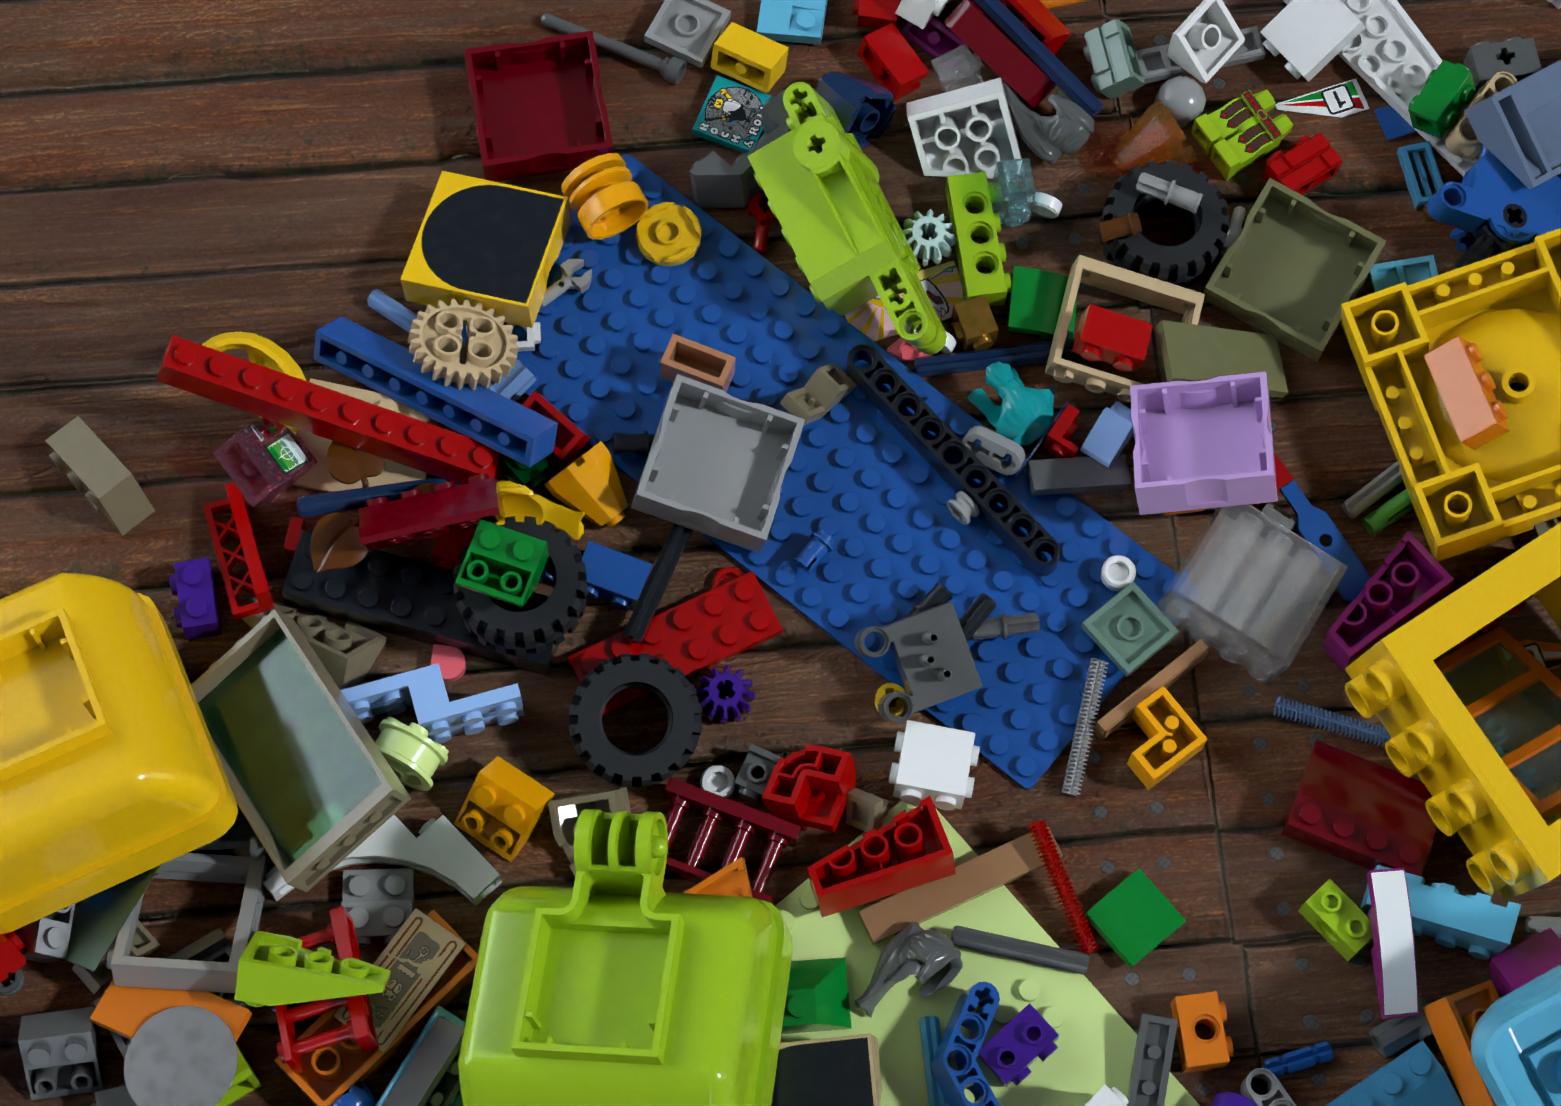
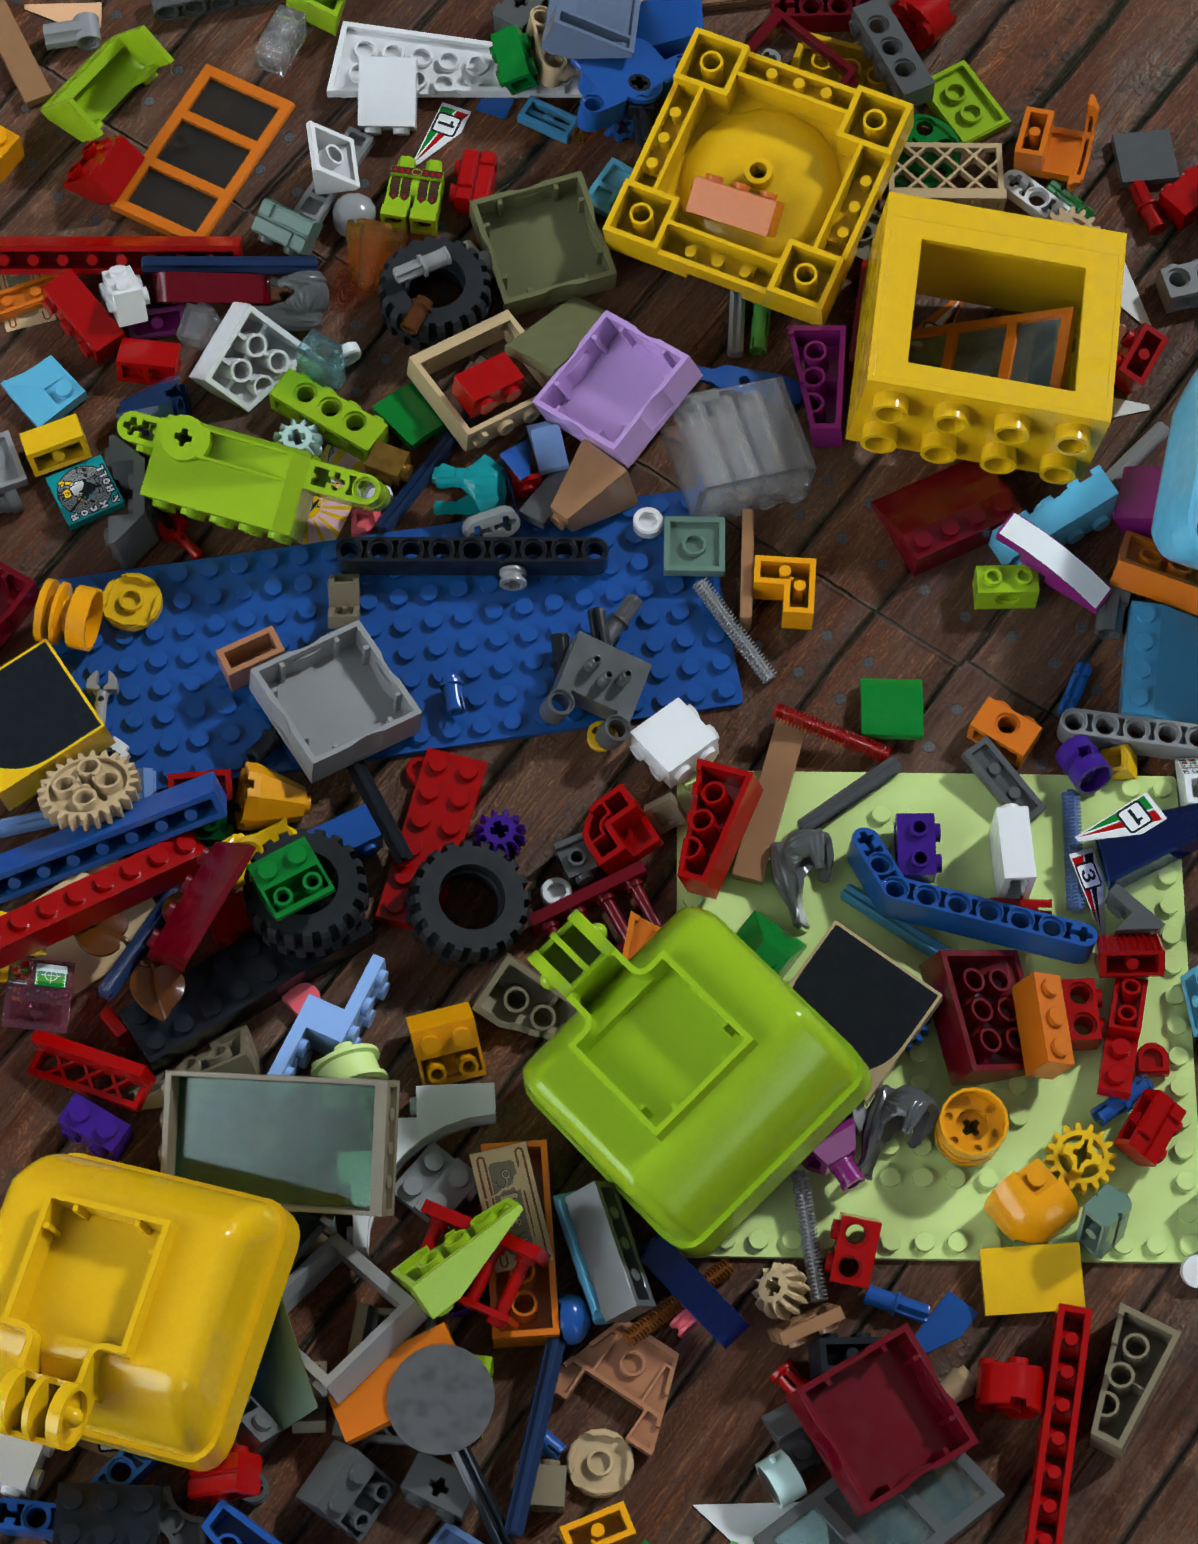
camera: 45 degrees left, 5 degrees down
(1071, 420) = (519, 459): none -> blue sticker
(1097, 502) = (592, 490): none -> medium nougat slope
(1332, 721) = (871, 479): medium blue axle -> none

